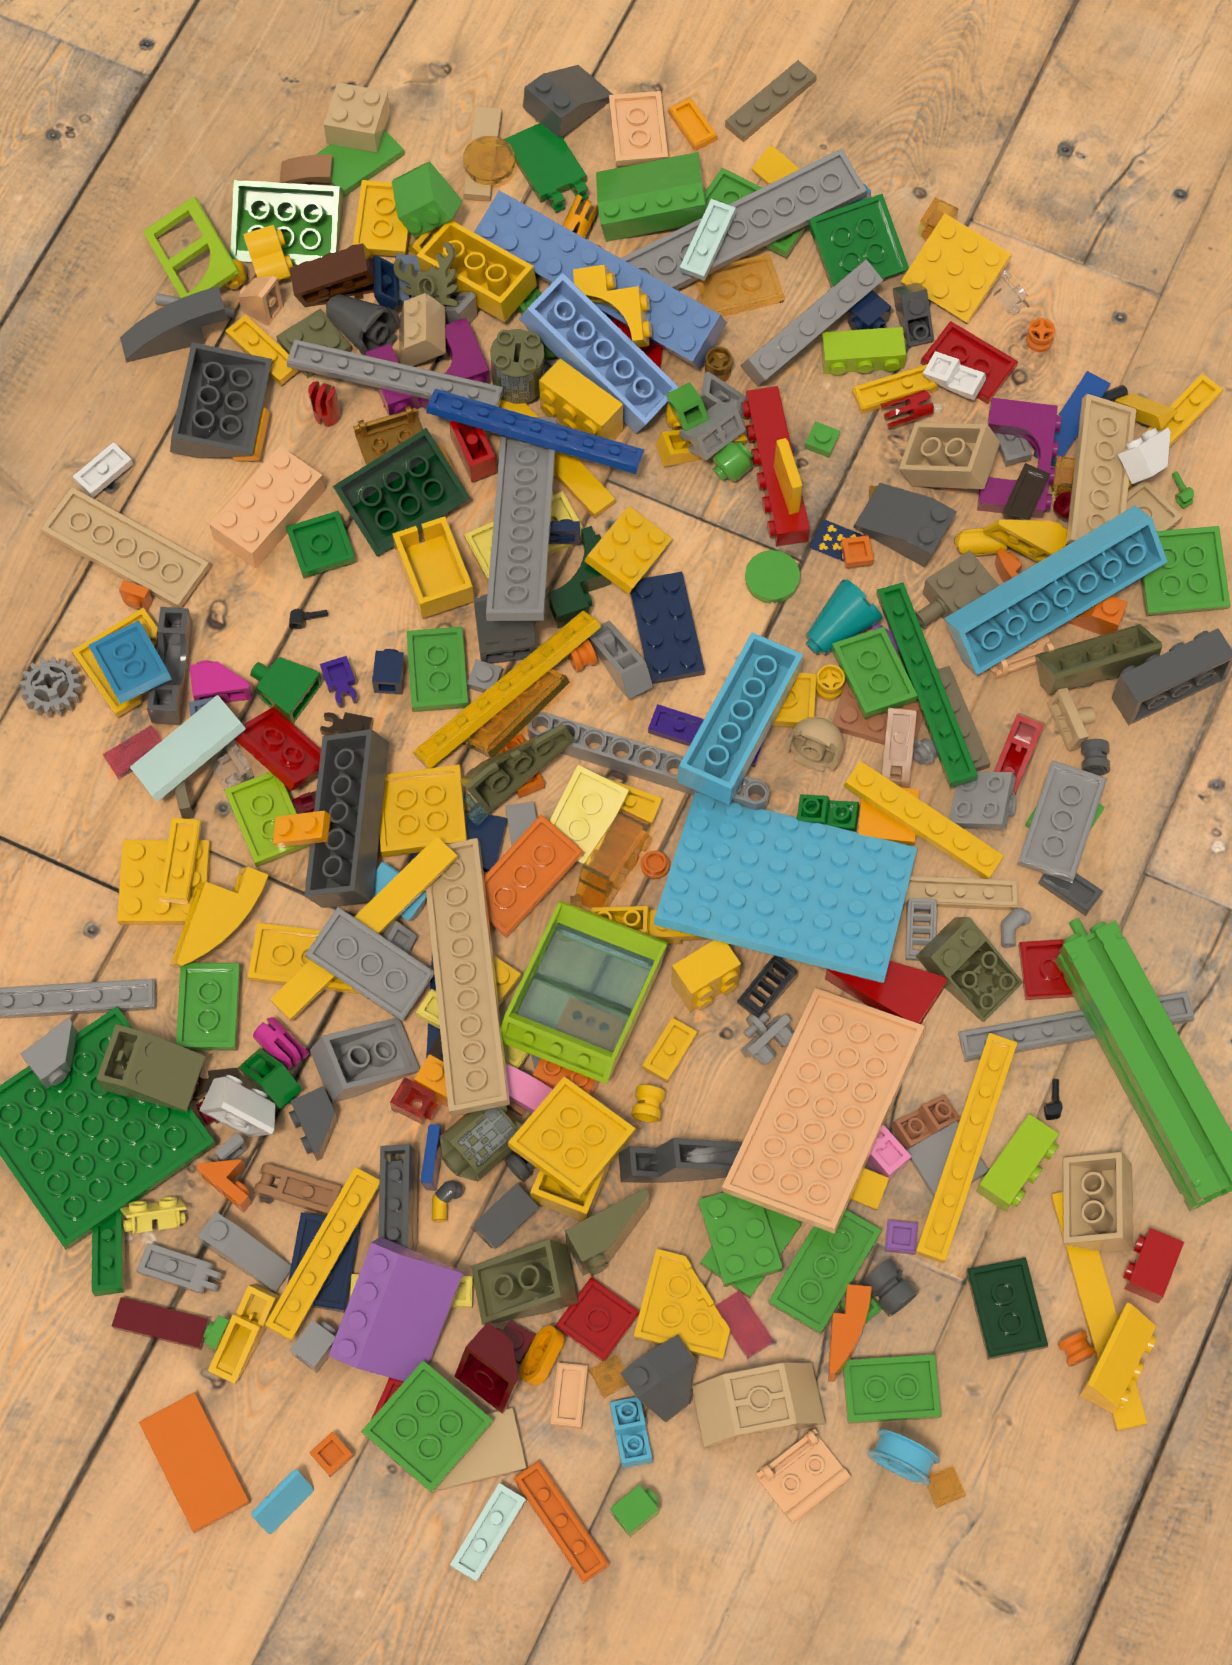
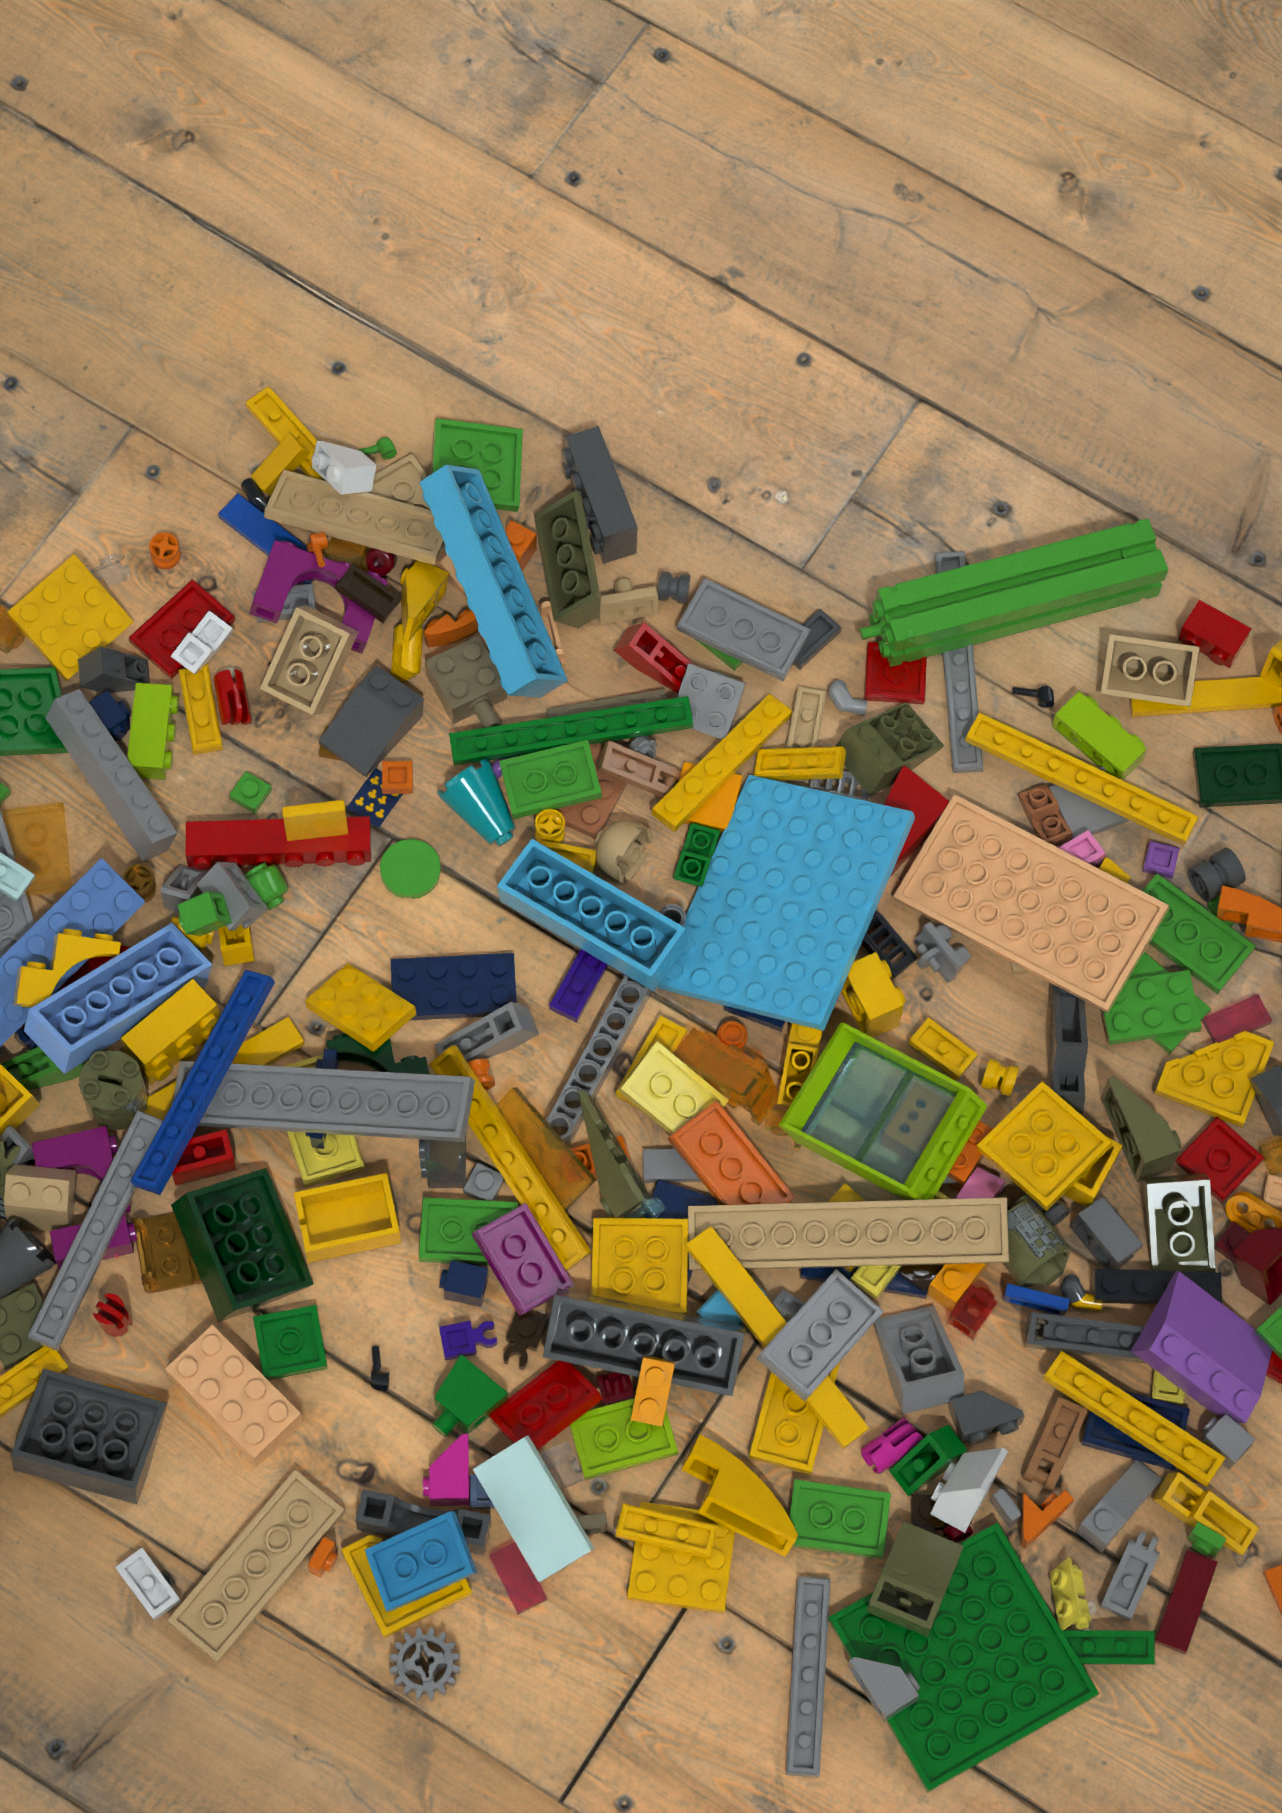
camera: 85 degrees left, 0 degrees up
(414, 712) = (522, 1259): none -> magenta tile
(456, 1252) = (1145, 1286): none -> black plate
(933, 887) = (800, 763): none -> yellow tile
(1065, 443) = (317, 544): none -> orange hand

